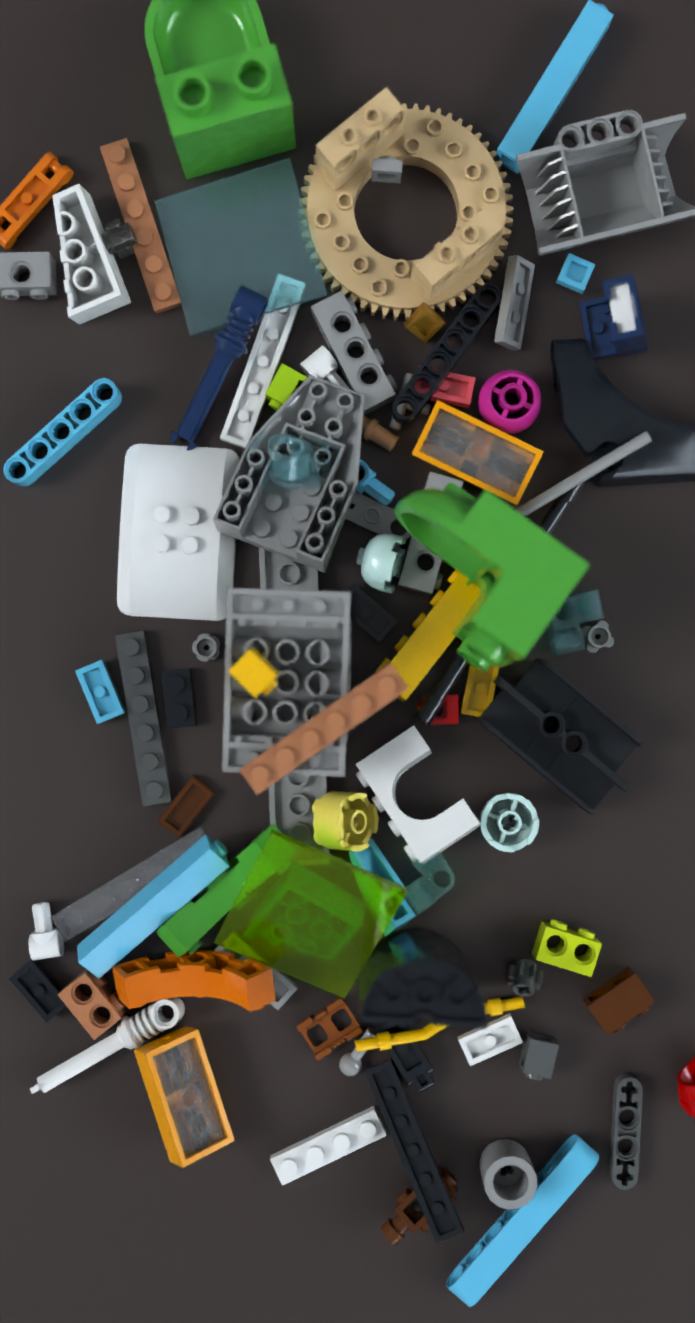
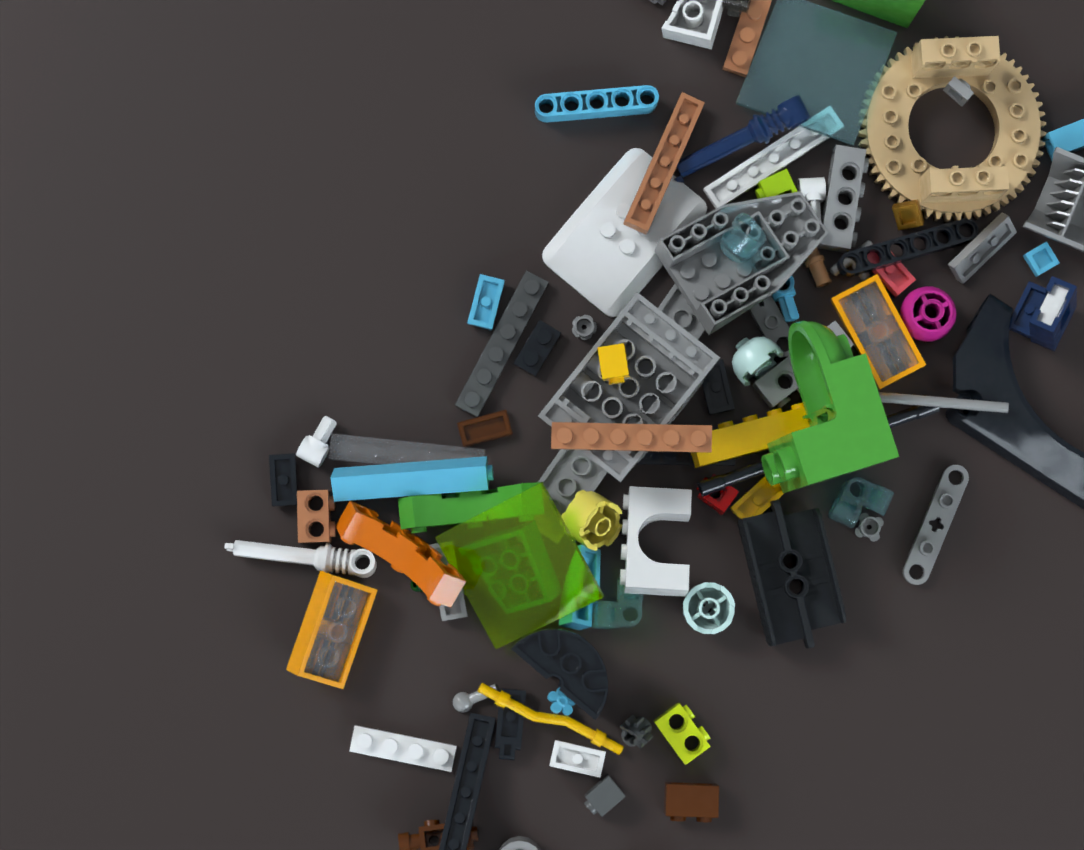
camera: 30 degrees right, 5 degrees down
(165, 443) = (663, 163): none -> nougat plate
(335, 1035) = (468, 662): dark orange piece -> none
(650, 568) = (942, 506): none -> light grey piece

